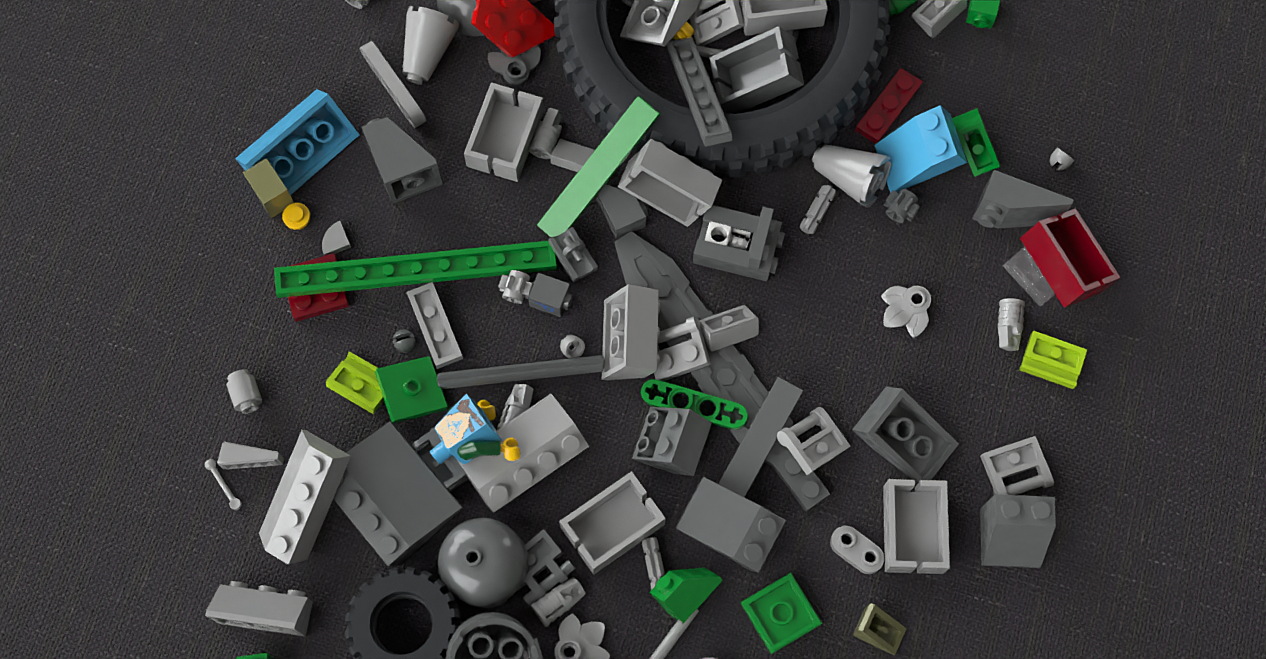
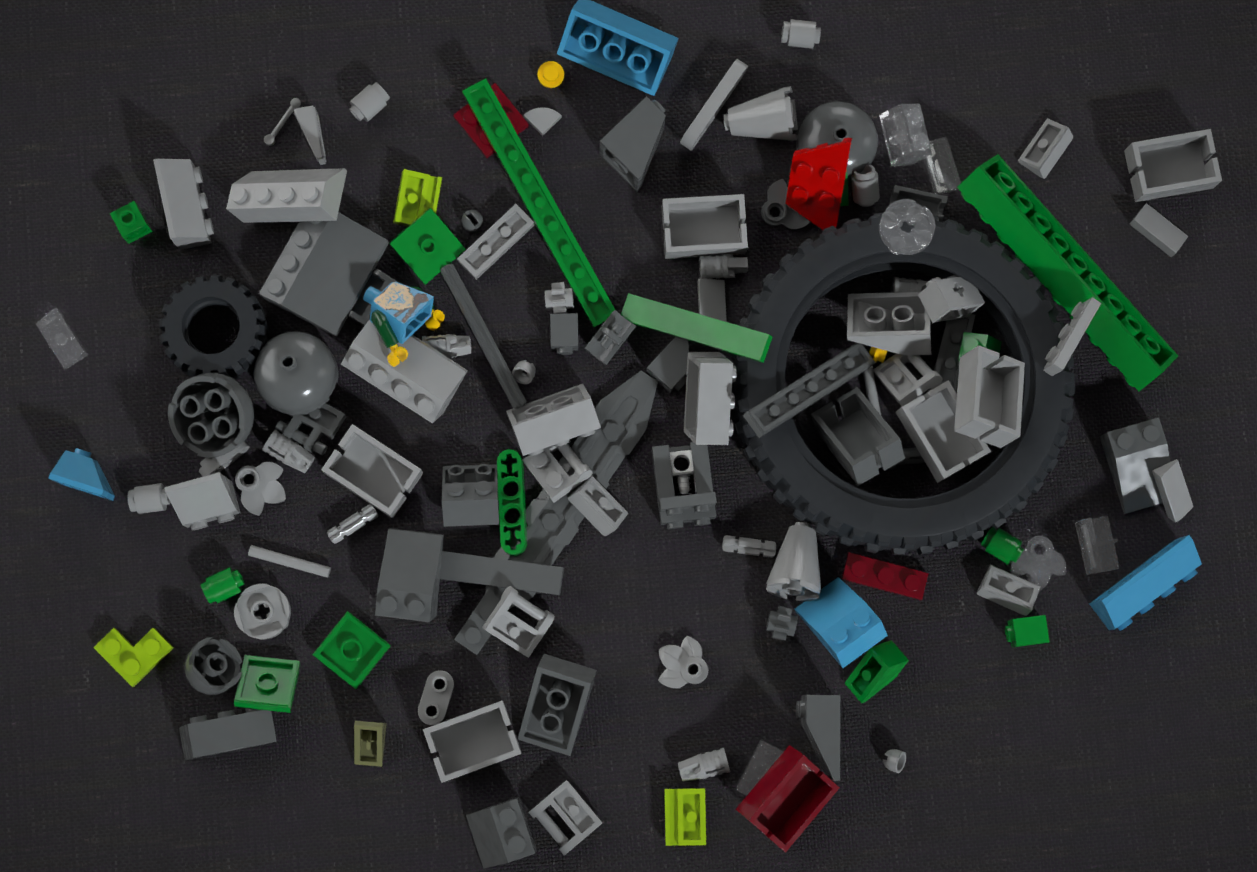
camera: 60 degrees right, 10 degrees up
(268, 187) = (562, 38): olive slope -> none
(684, 591) = (338, 557): green slope -> none

